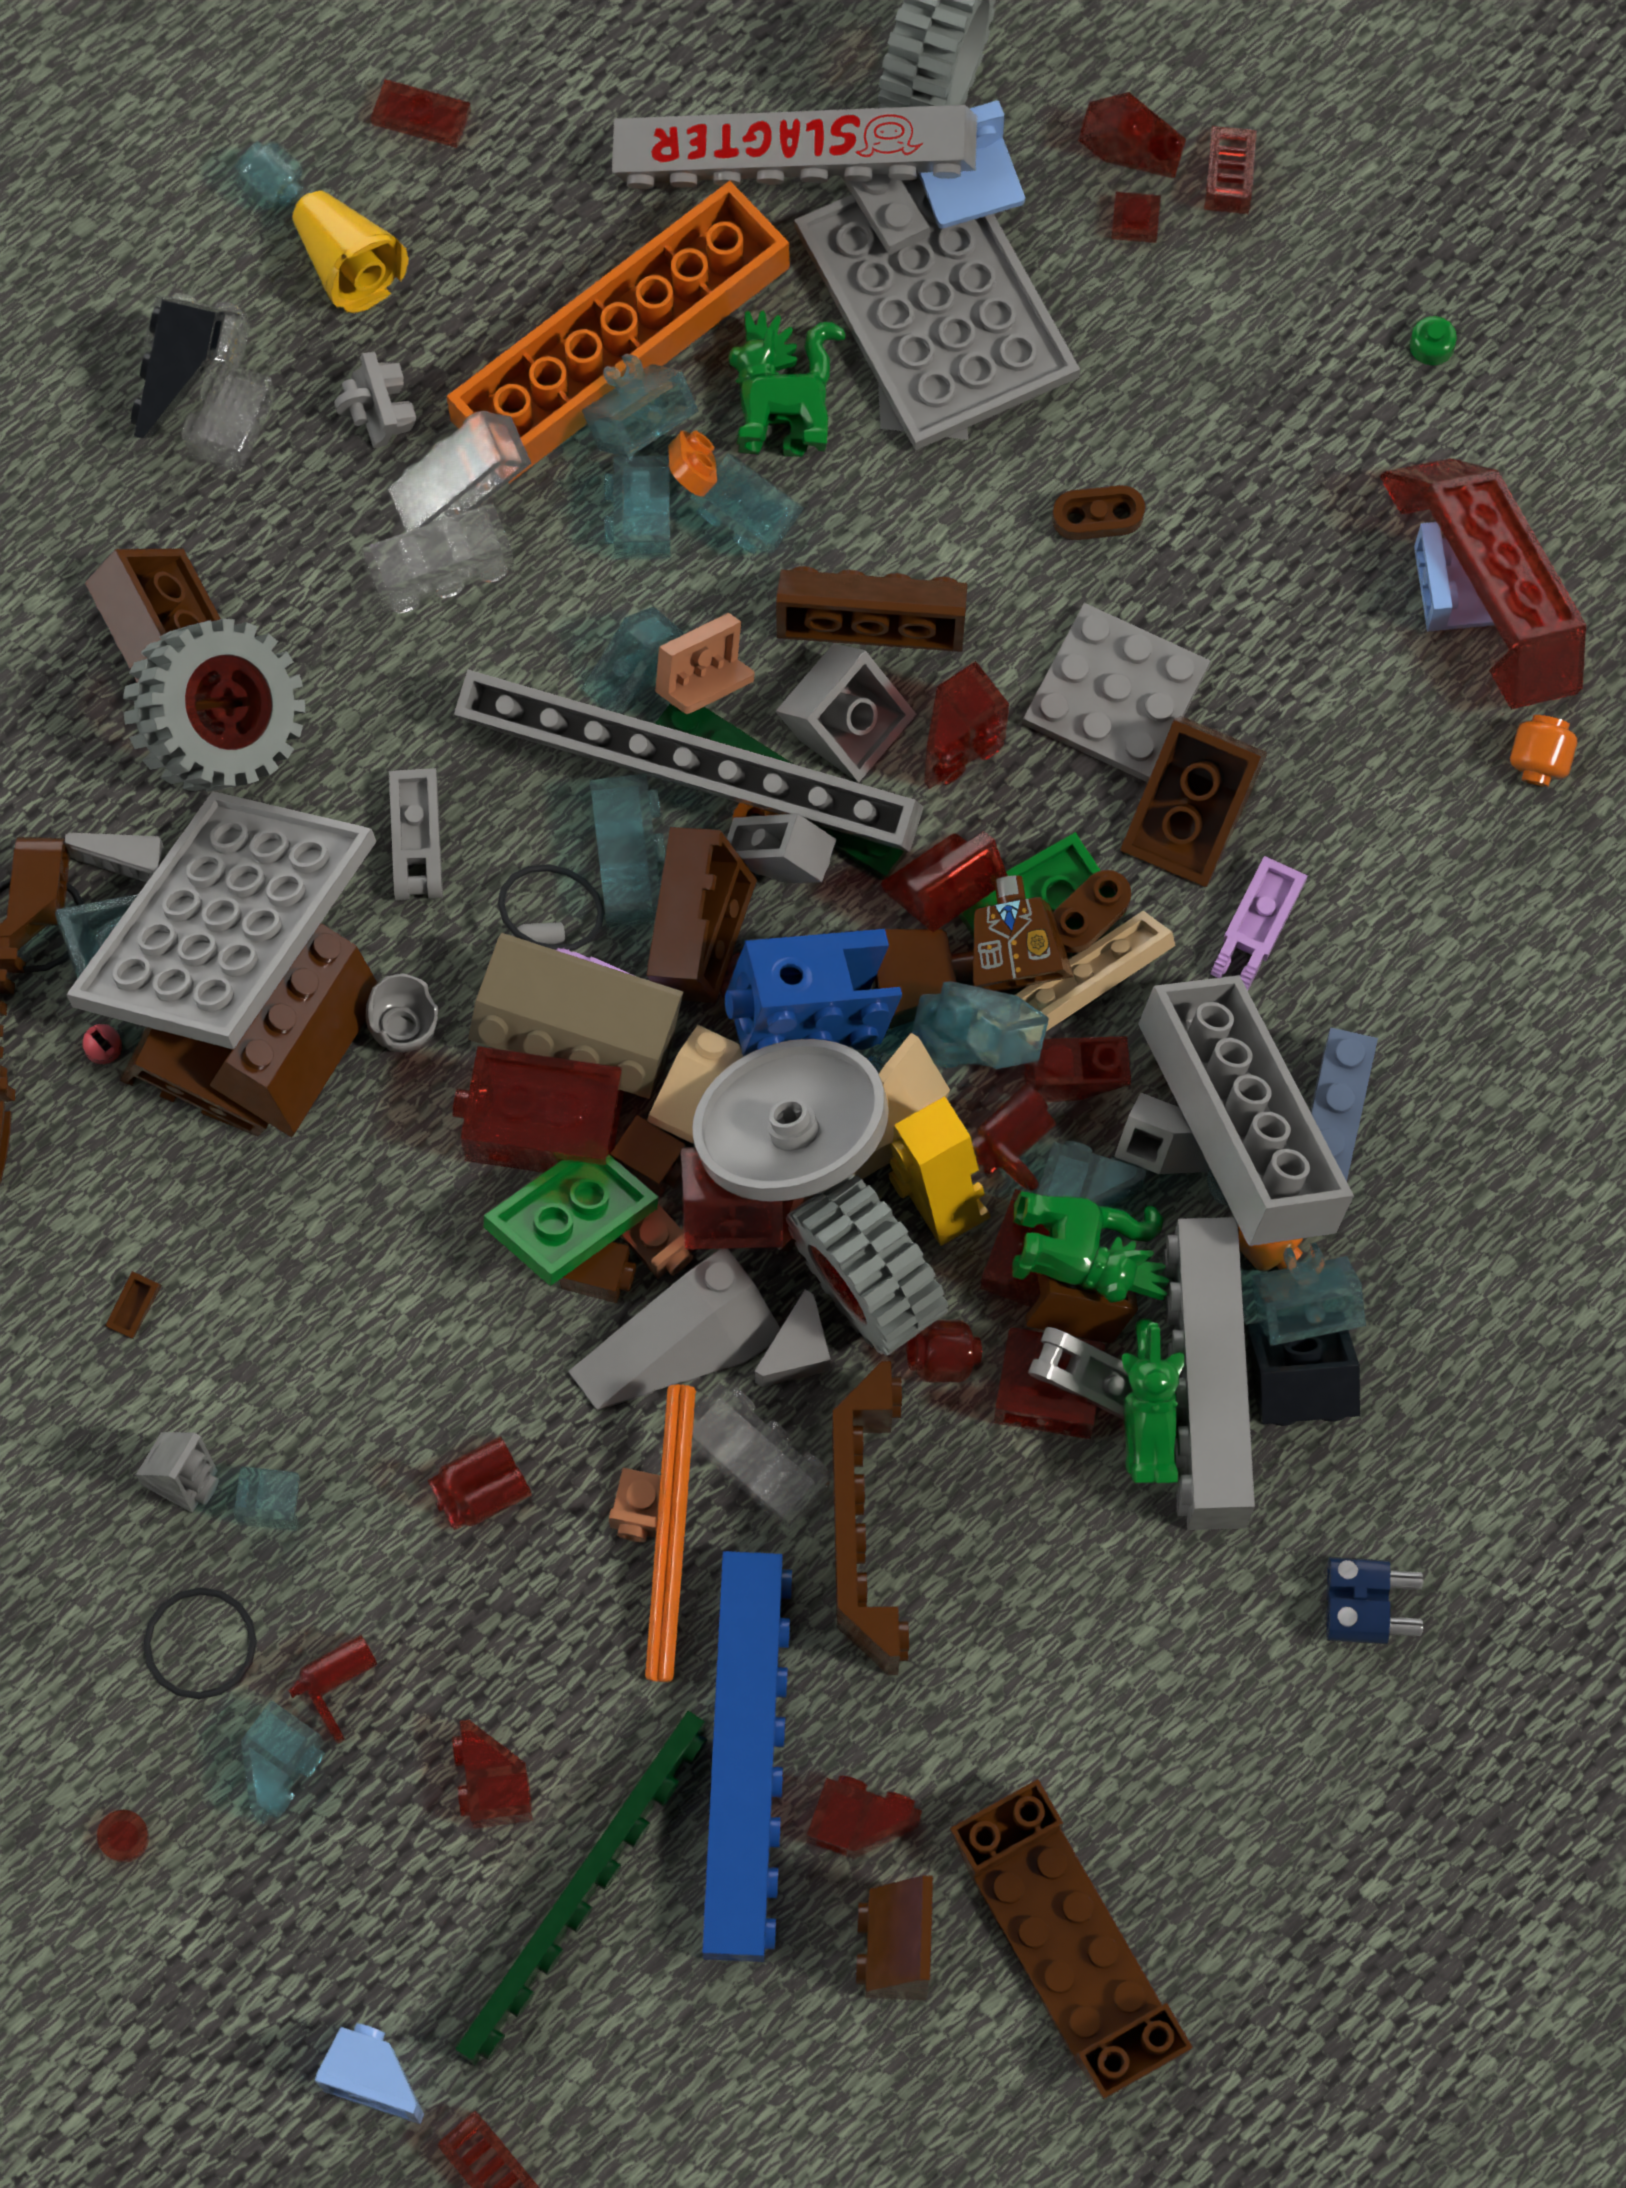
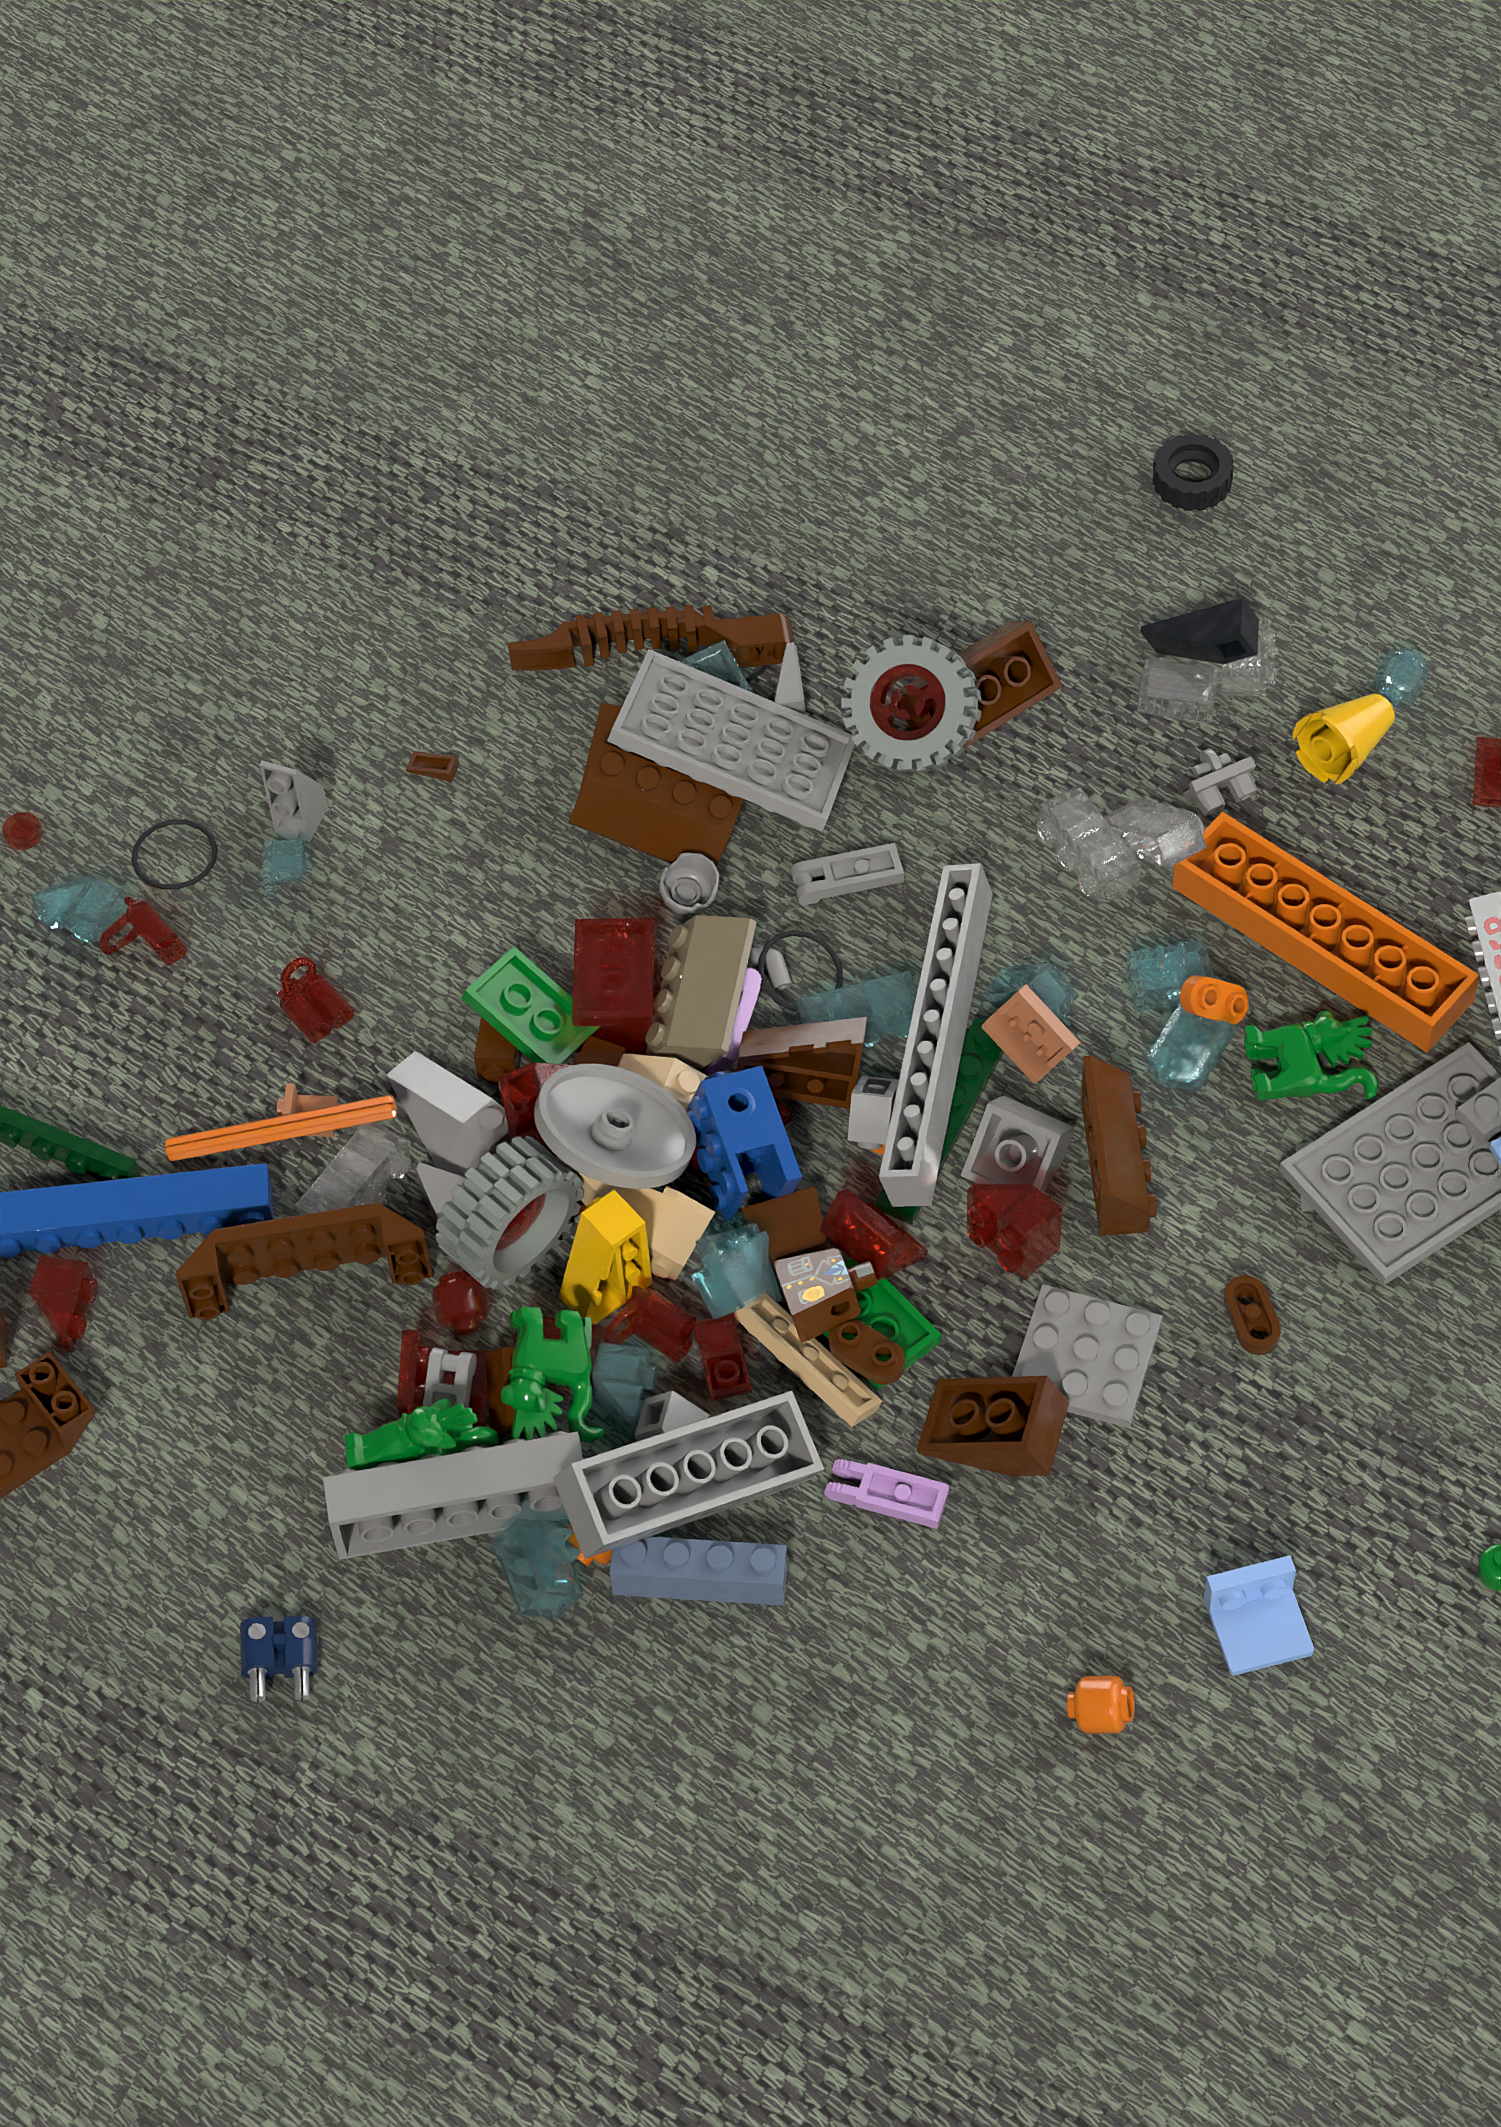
camera: 85 degrees right, 15 degrees down
(495, 1780) = (78, 1047): clear red slope -> none
(639, 407) = (1253, 951): clear light blue brick -> none
(1305, 1378) = (468, 1578): black slope -> none
(1506, 571) = (1258, 1634): clear red slope -> none

